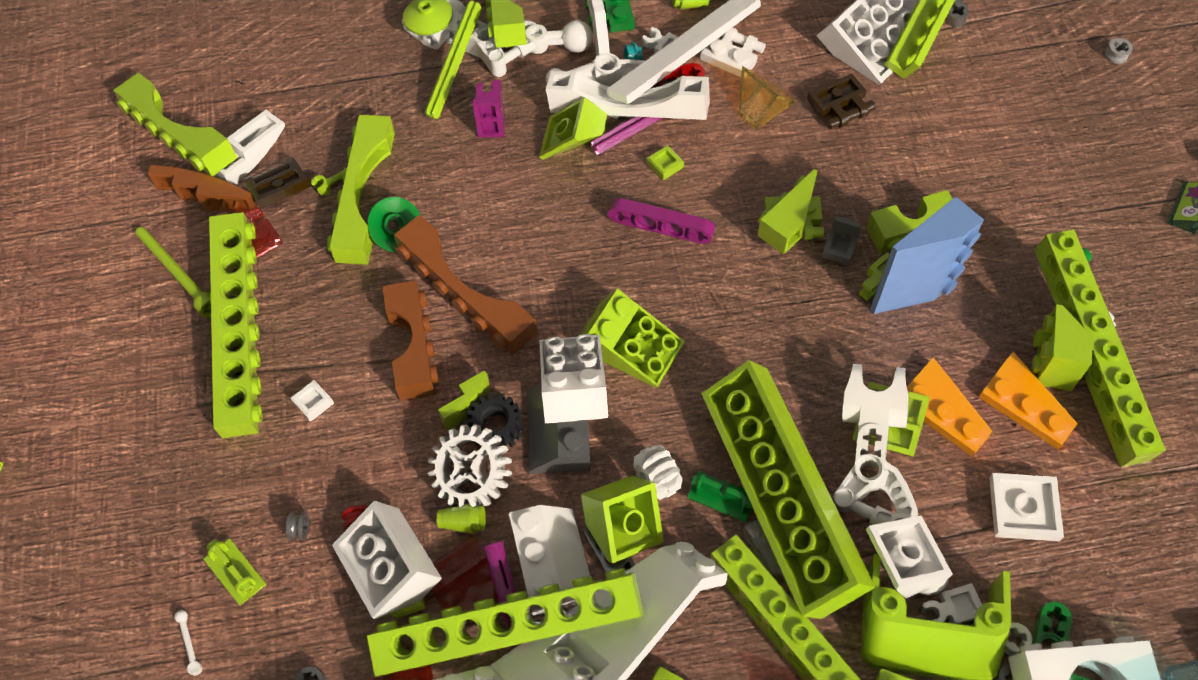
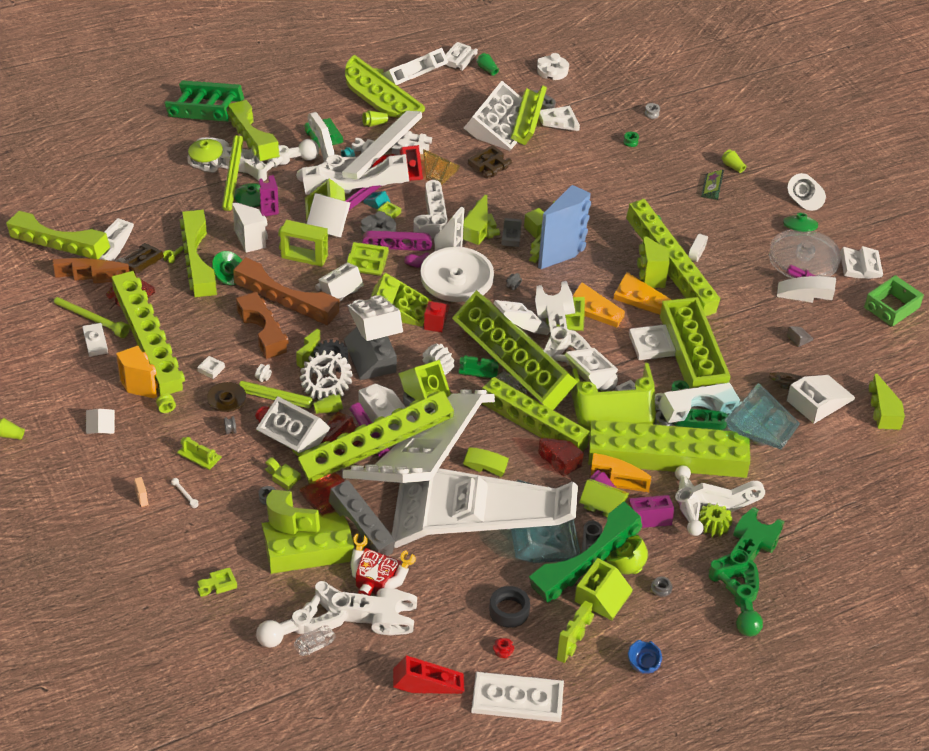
camera: 20 degrees left, 15 degrees down
(111, 473) = (100, 421): none -> white panel
(116, 630) = (141, 492): none -> light nougat tile
(165, 313) = (95, 339): none -> white plate
(187, 394) = (136, 372): none -> light orange slope
(218, 459) = (165, 403): none -> lime bush
(306, 457) = (226, 396): none -> dark brown dish
(349, 648) = (283, 476): none -> lime plate
(382, 431) = (263, 372): none -> white plate
(389, 477) = (272, 393): none -> lime axle
(446, 160) = (249, 227): none -> white slope
(464, 93) = (248, 195): none -> green dish
(515, 203) = (307, 232): none -> lime window
(549, 286) = (341, 281): none -> white brick
(567, 159) = (329, 214): none -> white slope
(607, 245) = (368, 258): none -> lime slope
(642, 176) = (376, 220): none -> dark grey plate
(653, 138) = (377, 199): none -> teal slope
(681, 374) = (435, 316): none -> red slope
(682, 263) = (414, 260): none -> magenta arm
(721, 85) = (413, 162): none -> red slope
(727, 202) = (436, 217): none -> white beam
(734, 306) = (456, 273): none -> white dish
(742, 234) = (452, 233): none -> white slope
(811, 424) = (522, 317): none -> white slope
(822, 333) = (513, 281): none -> dark grey plate
(968, 41) = (559, 118): none -> white wing
(1073, 103) = (631, 139): none -> green bush
(1101, 540) = (694, 343): none -> lime brick
(1143, 326) = (698, 247): none -> white beam

